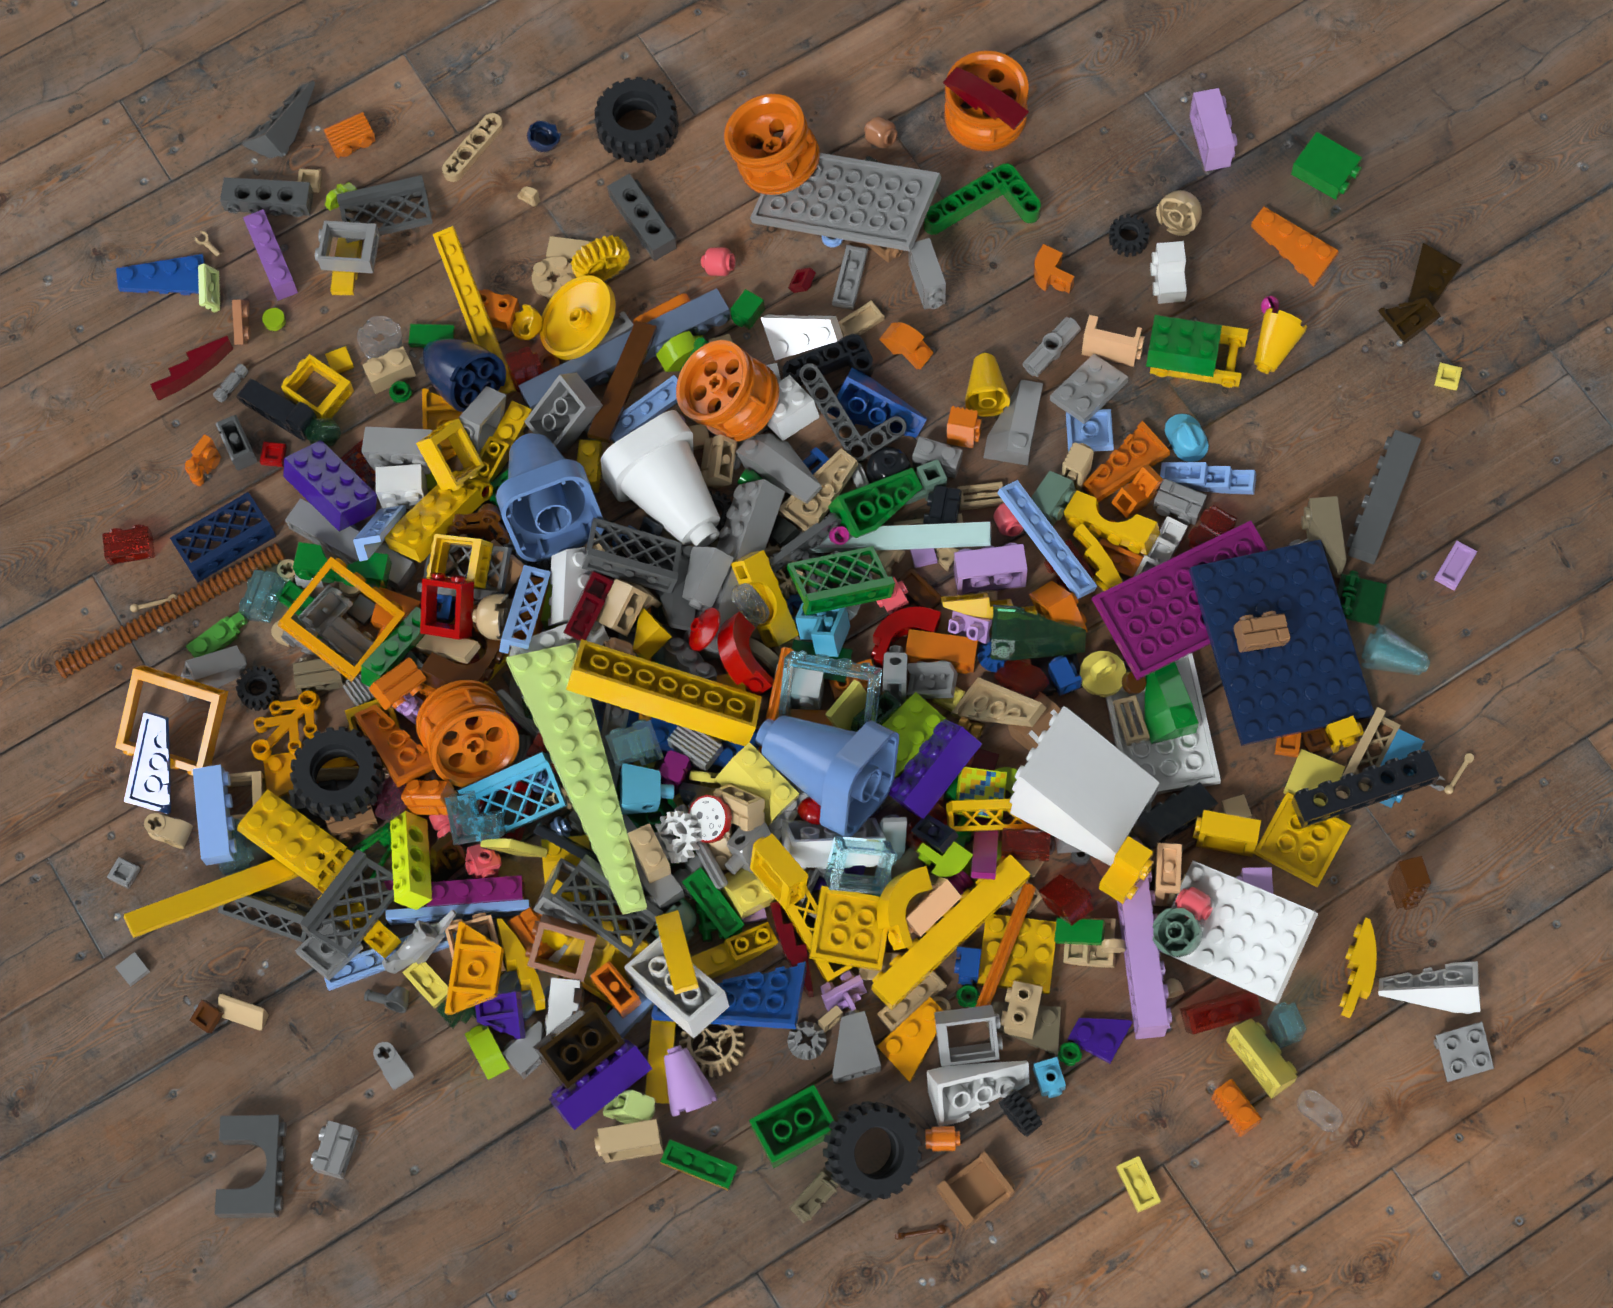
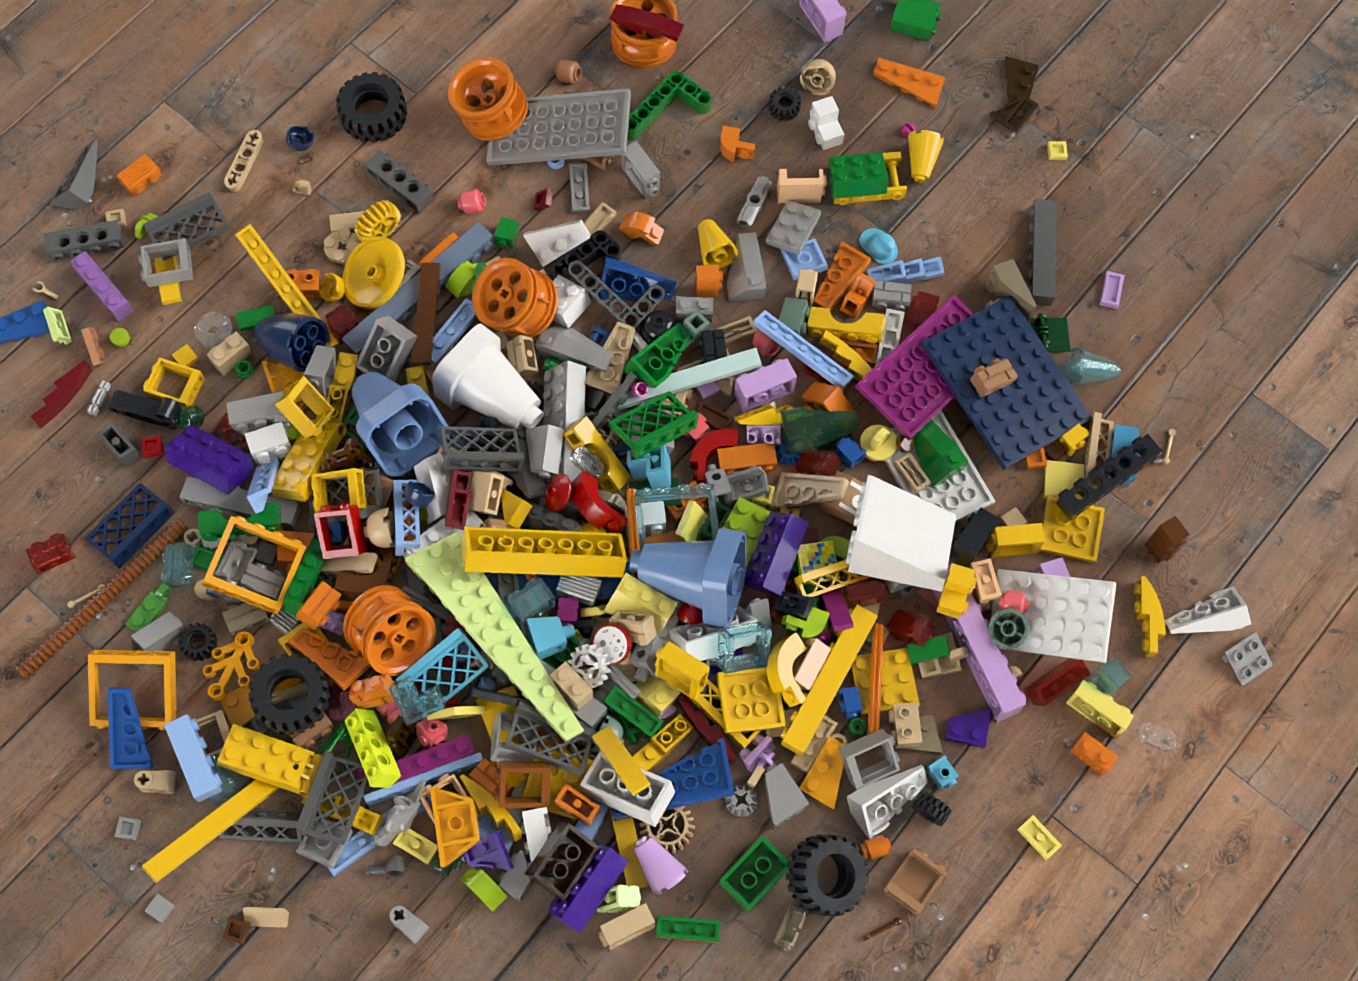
camera: 25 degrees left, 0 degrees up
(204, 459) = (95, 466): orange plate -> none
(545, 588) = (418, 494): none -> dark blue hair
(1074, 1049) = (956, 749): green plate -> none

